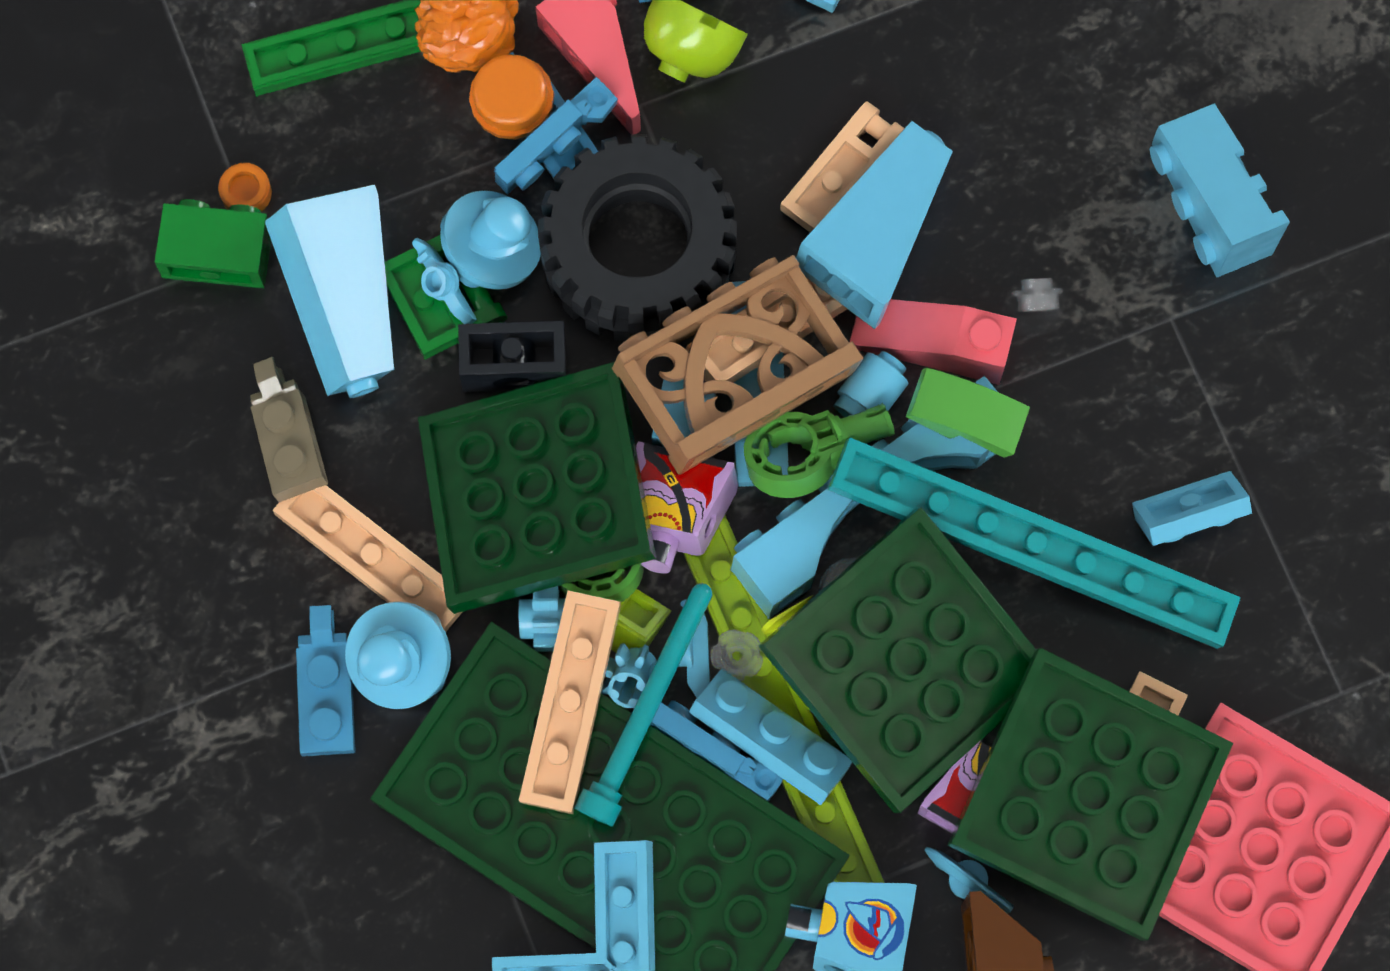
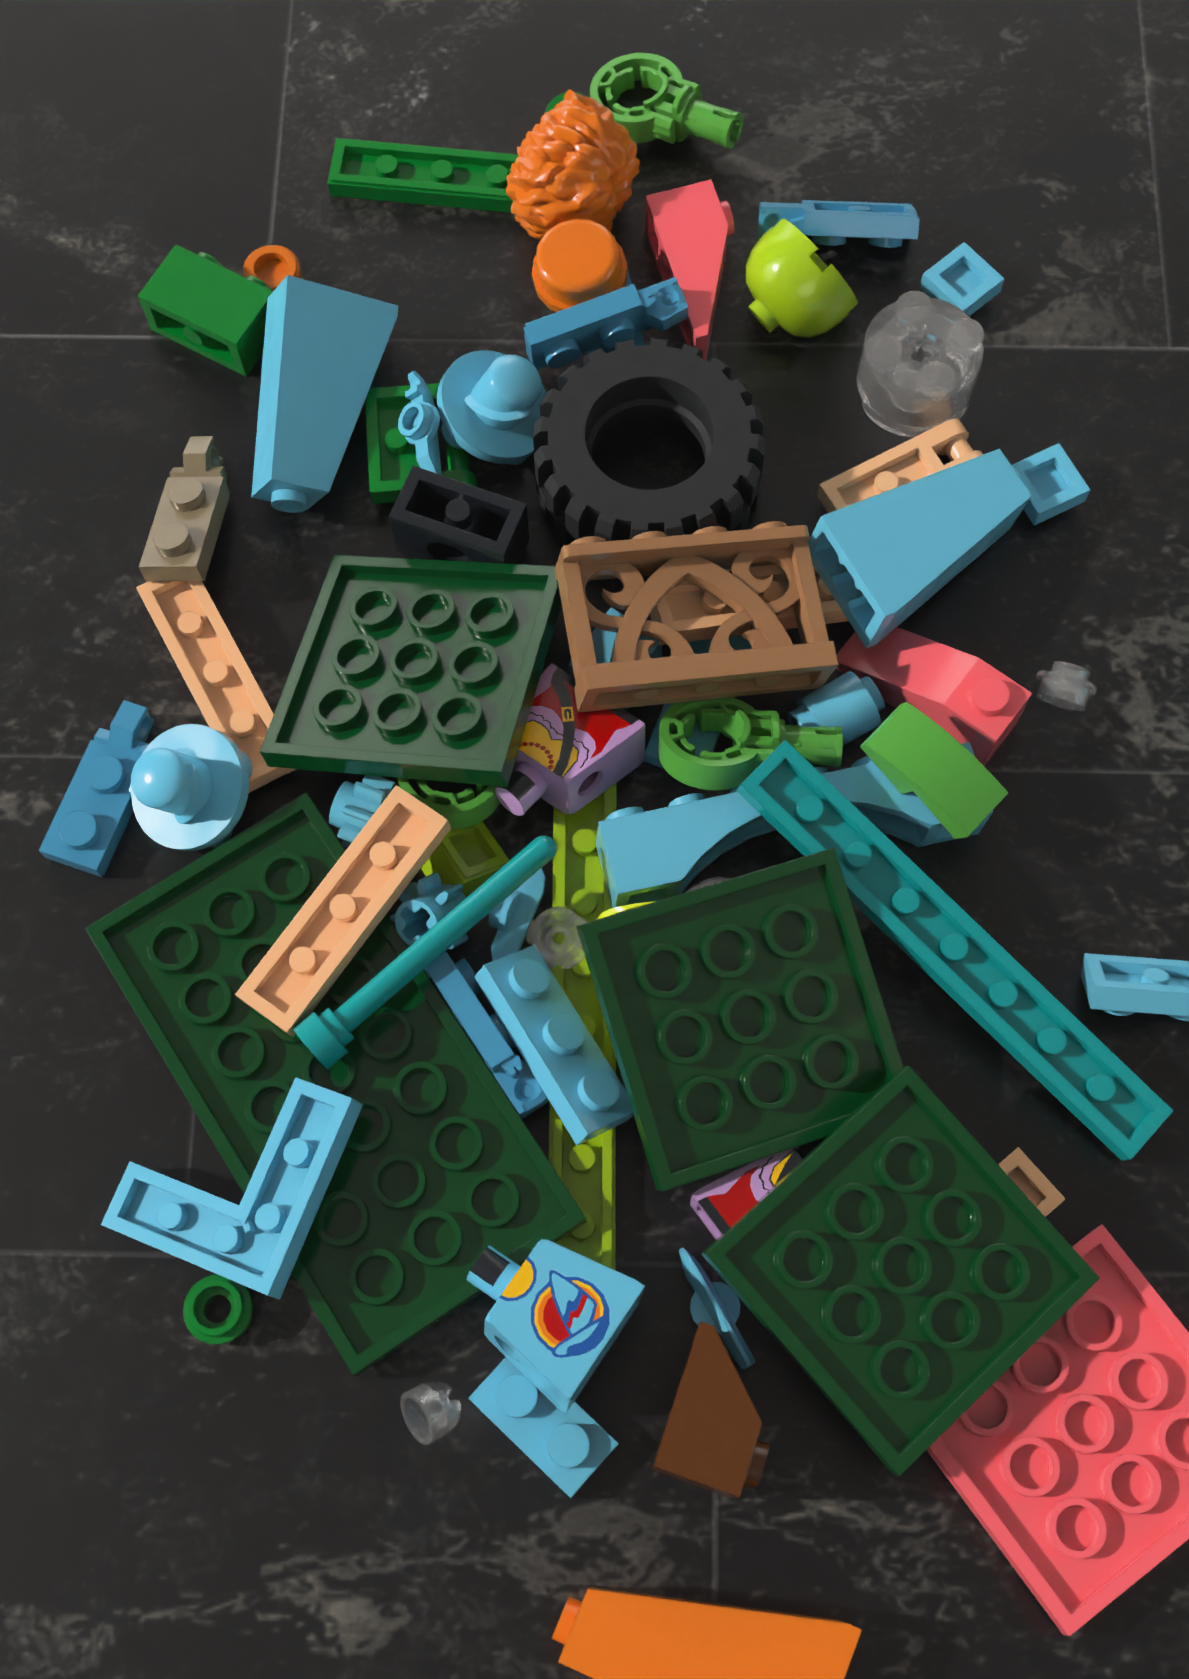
camera: 25 degrees right, 5 degrees down
(823, 42) = (919, 364): none -> clear brick
(960, 128) = (1052, 482): none -> medium azure plate

